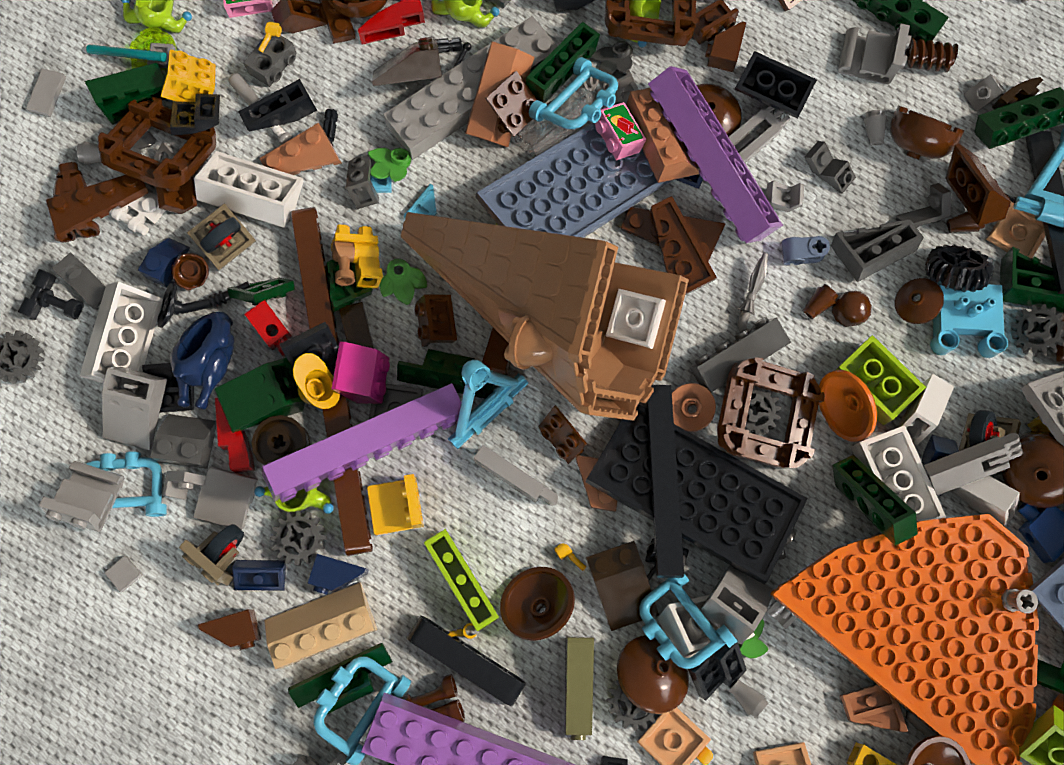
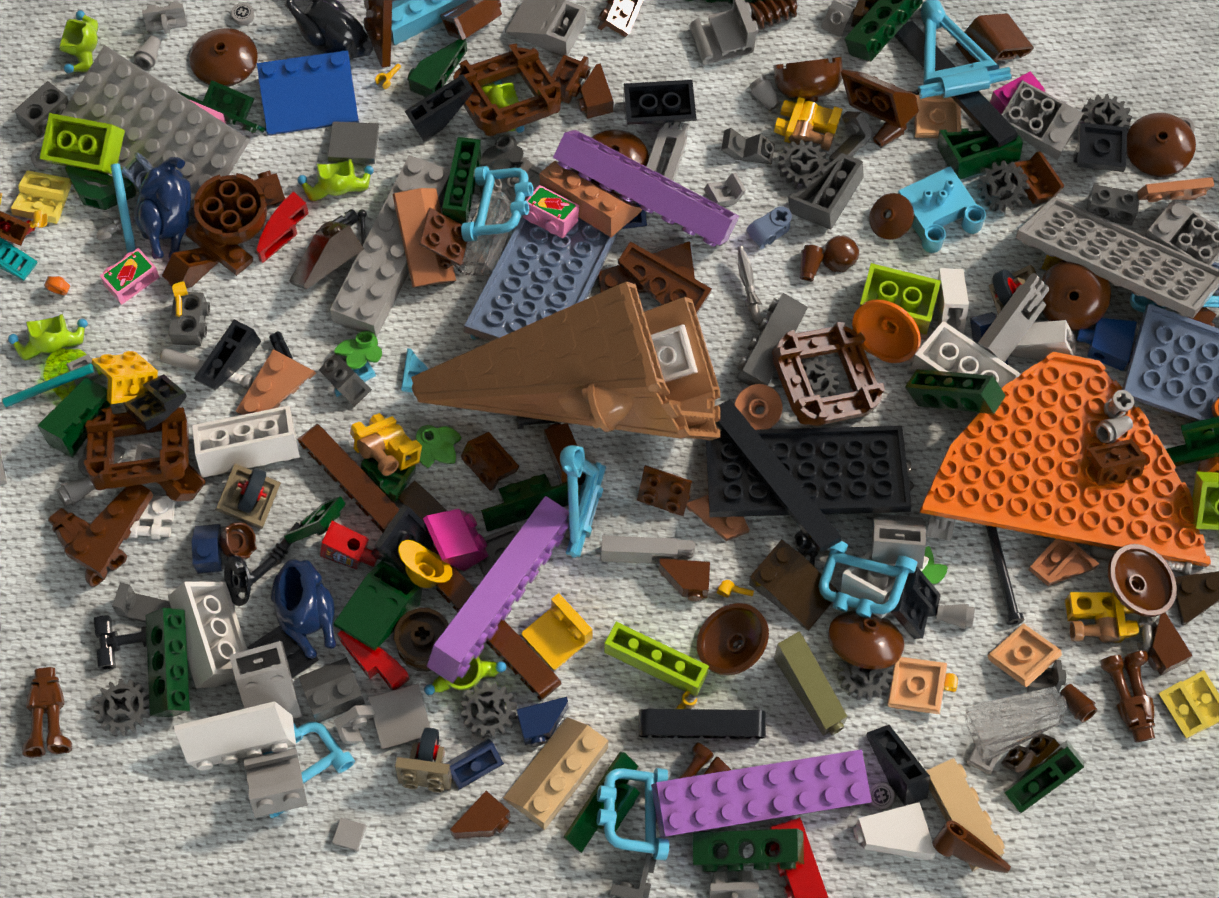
camera: 30 degrees left, 10 degrees down
(67, 342) = (167, 662): none -> dark green brick
(79, 439) = (236, 735): none -> white slope
(536, 523) = (687, 577): none -> reddish brown slope
(814, 686) = (1014, 616): none -> black bar
(858, 206) = (800, 162): none -> dark grey gear
(900, 169) = (807, 117): none -> yellow hips
(959, 268) = (907, 171): black gear -> none
(984, 652) = (1117, 461): none -> reddish brown bracket
(999, 620) = (1111, 429): none -> light grey cone

